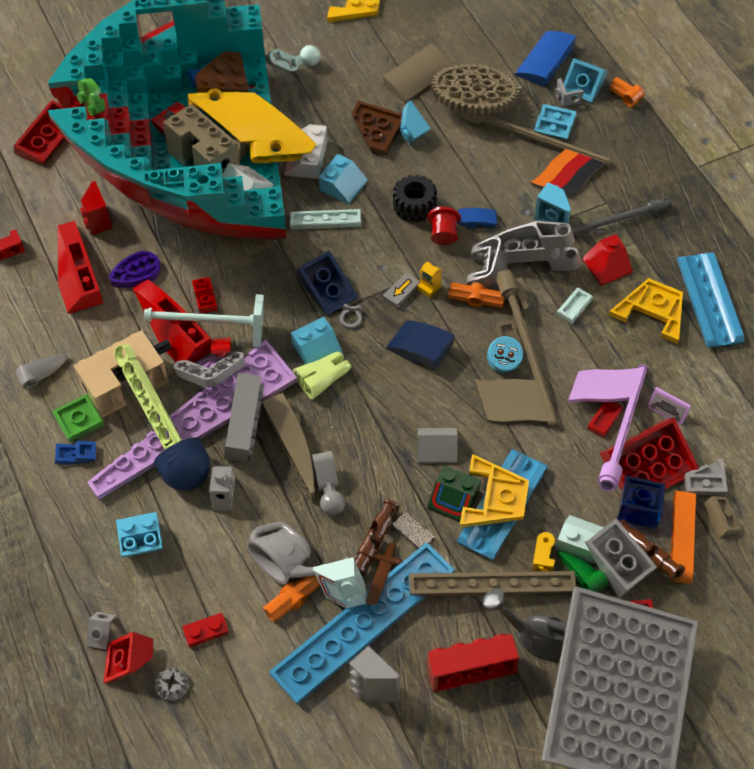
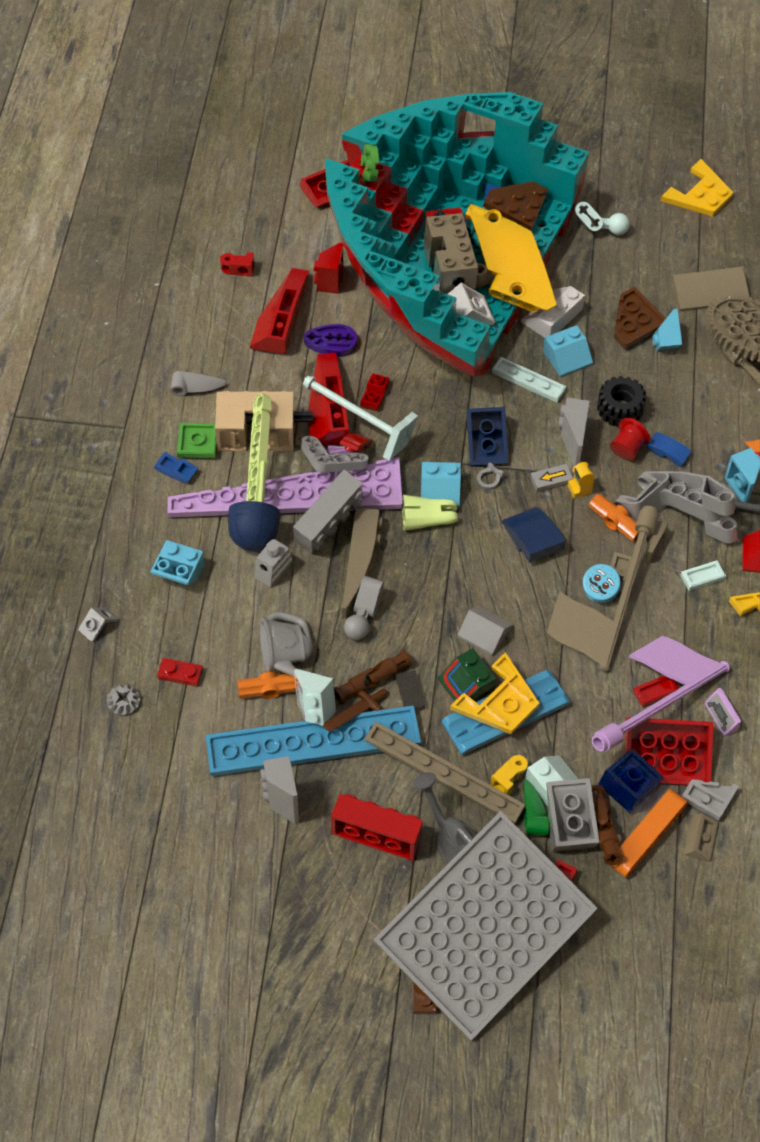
camera: 30 degrees right, 0 degrees up
(127, 655) = (103, 654): red slope -> none
(395, 240) = (573, 424): none -> light grey slope

